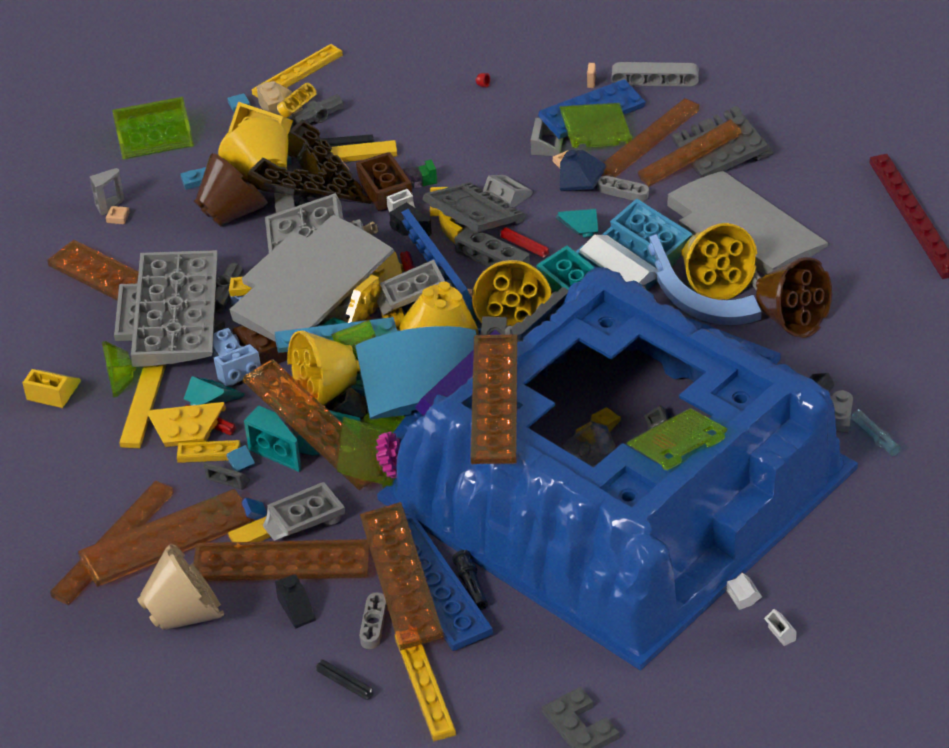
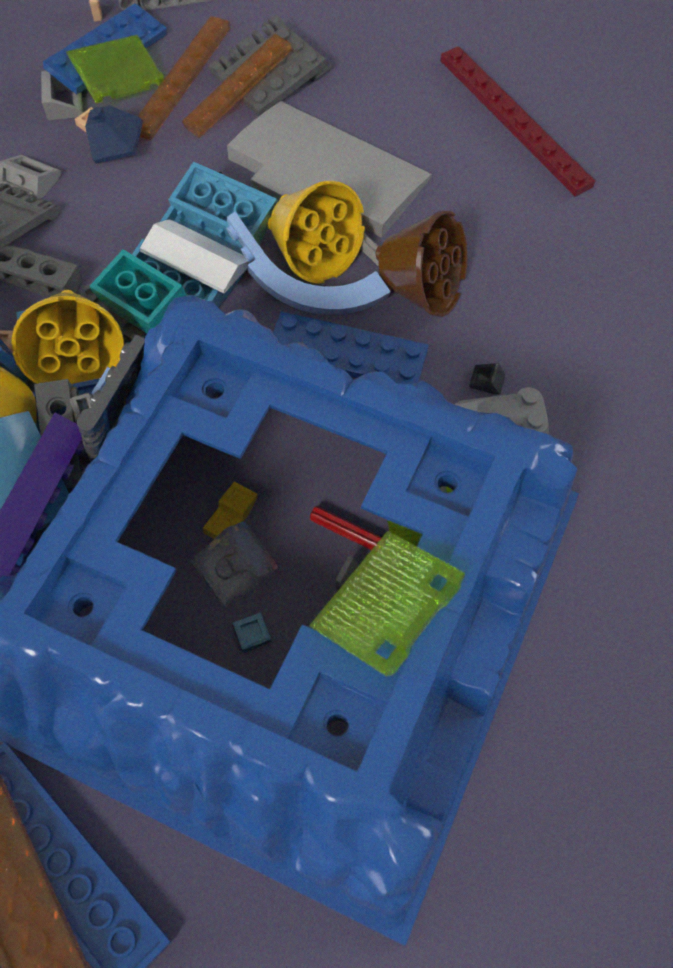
camera: 20 degrees left, 20 degrees up
(463, 566) = (109, 832): black pin -> none
(494, 400) = (78, 608): clear orange plate -> none
(524, 242) = (67, 245): red axle -> none
(580, 221) = (131, 204): teal slope -> none
(633, 191) = (149, 147): light grey beam -> none
(656, 417) = (305, 481): dark grey slope -> none
(743, 591) = (505, 756): white piece -> none
(788, 634) = (587, 810): white piece -> none
(890, 445) = (610, 458): clear light blue pin -> none

